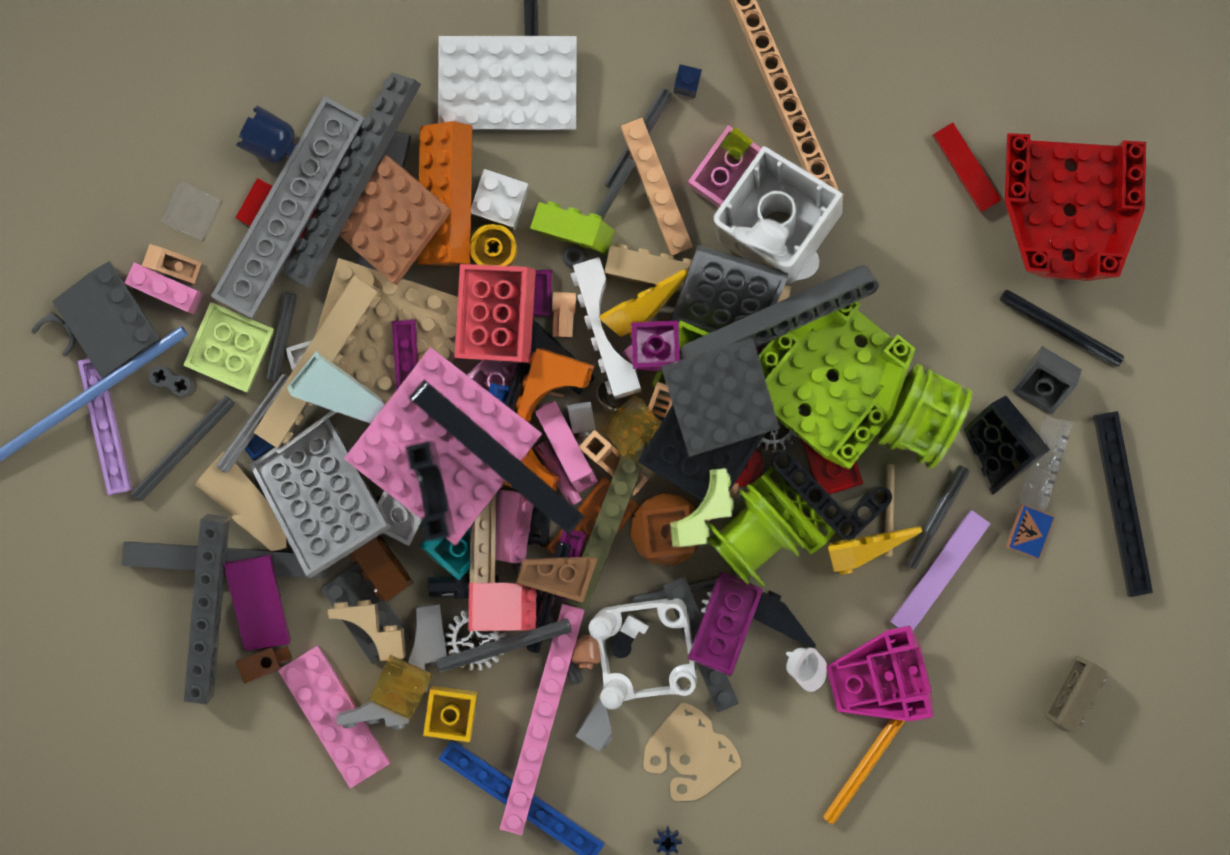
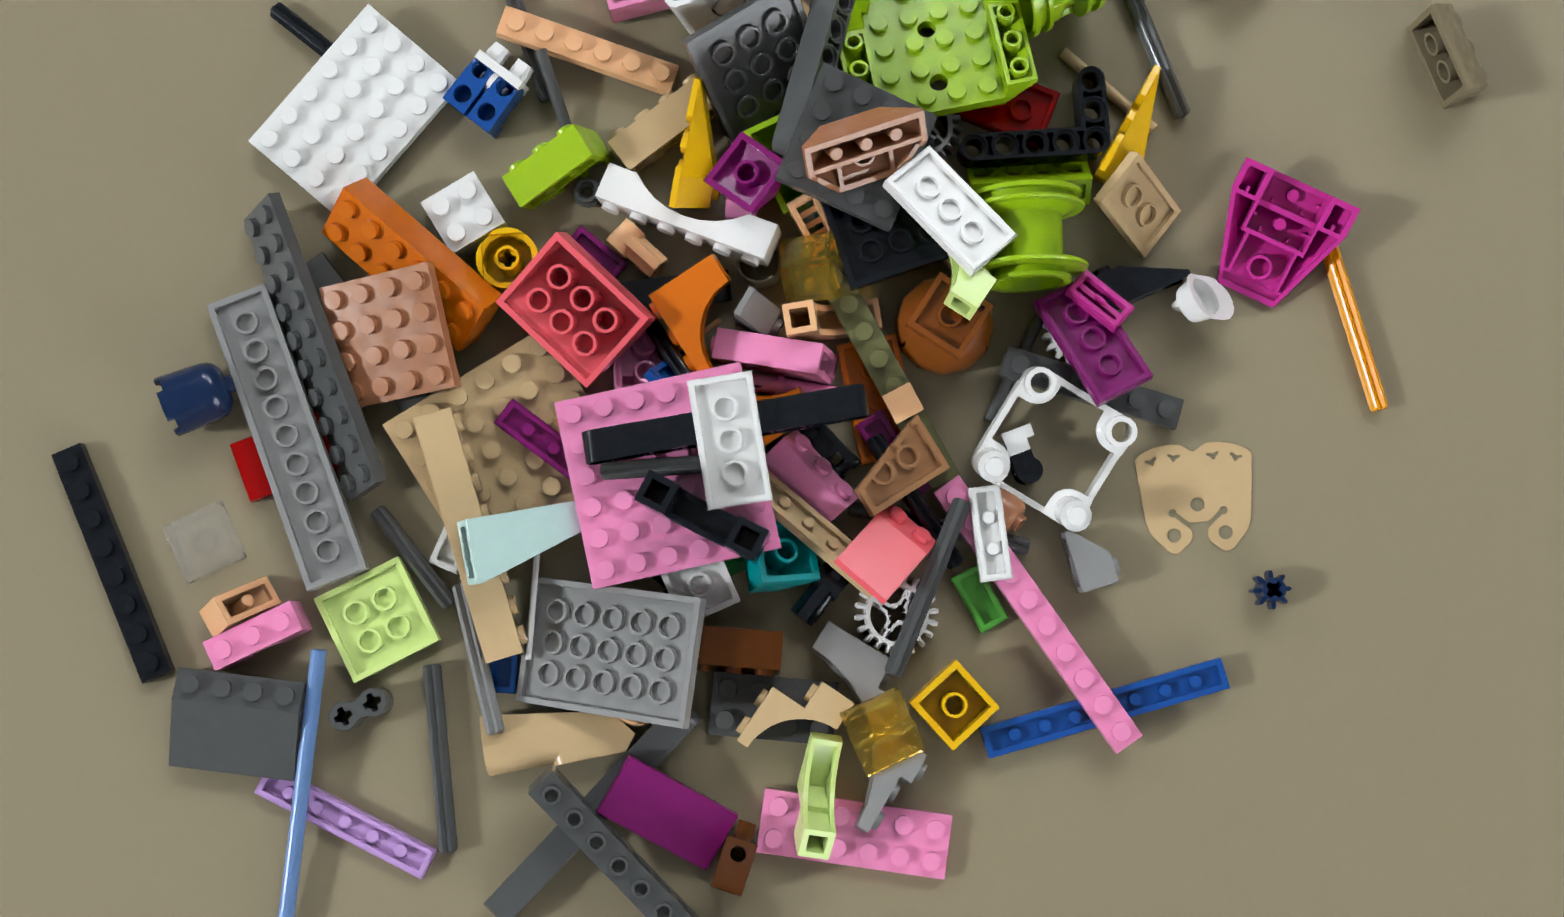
camera: 50 degrees left, 5 degrees down
(53, 317) = (187, 781): dark grey cap -> none
(137, 169) = (113, 563): none -> black plate
(337, 677) = (816, 791): none -> yellowish green arch
(452, 450) = (640, 468): none -> dark grey axle
(487, 468) = (729, 440): none -> white tile
(525, 678) = (979, 599): none -> bright green tile
(563, 656) = (990, 533): none -> white tile
(585, 149) = (488, 90): none -> blue hips
(597, 544) = (902, 402): none -> light nougat tile
(719, 403) = (864, 147): none -> nougat wedge
(725, 483) = (949, 210): none -> white tile
(742, 609) = (1092, 309): none -> dark pink tile
(829, 584) = (1137, 204): none -> tan plate
(940, 571) = (1212, 89): lavender tile -> none

